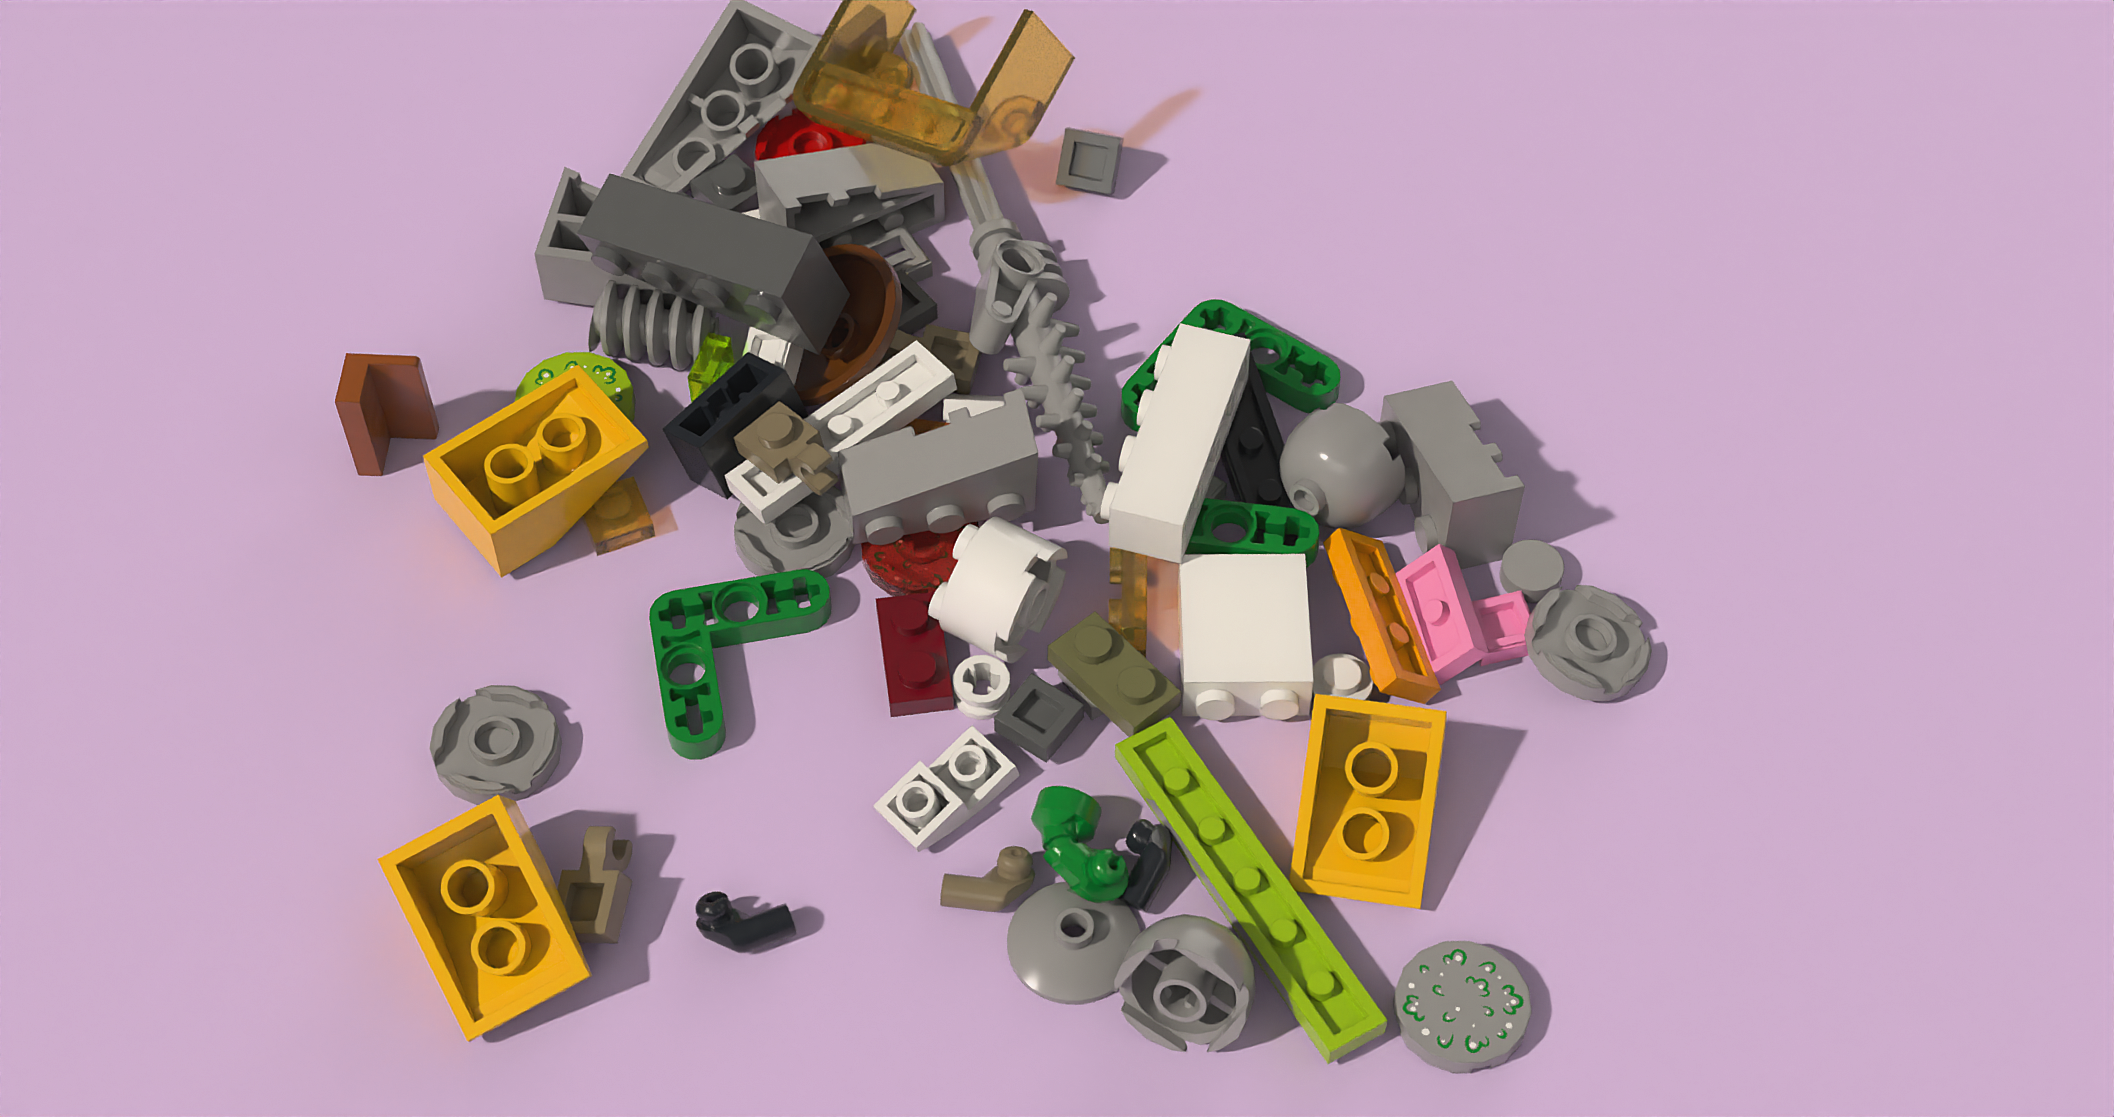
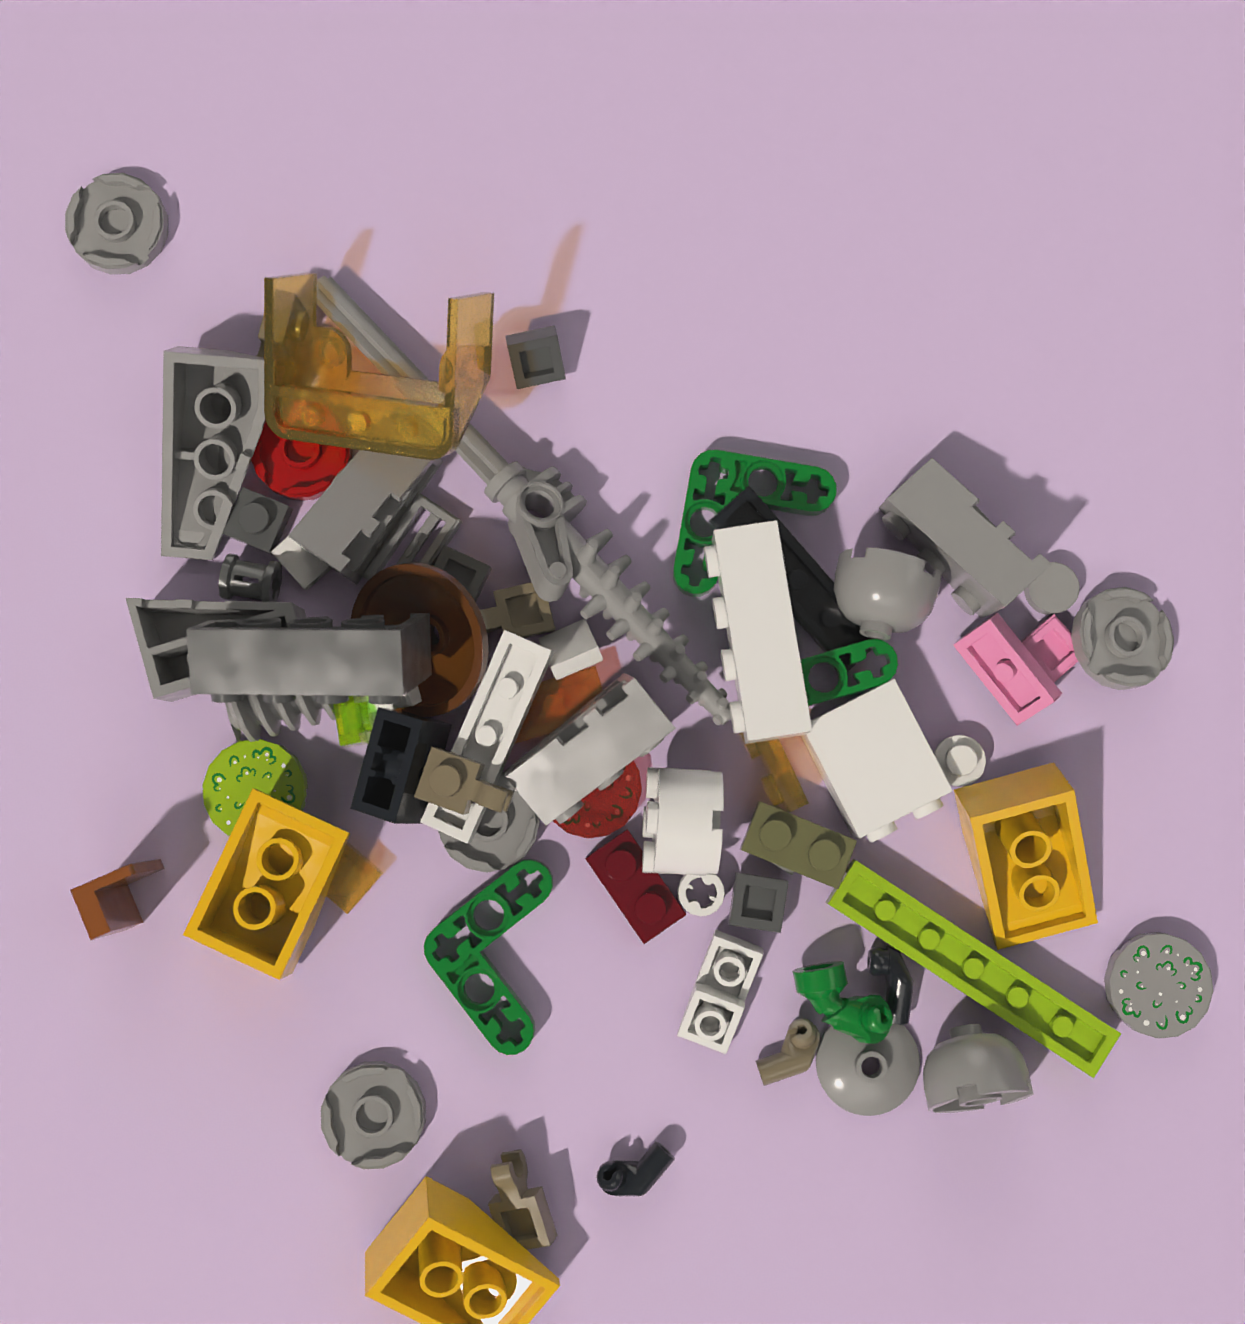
camera: 25 degrees left, 30 degrees up
(1381, 616) = (966, 693): light orange plate -> none

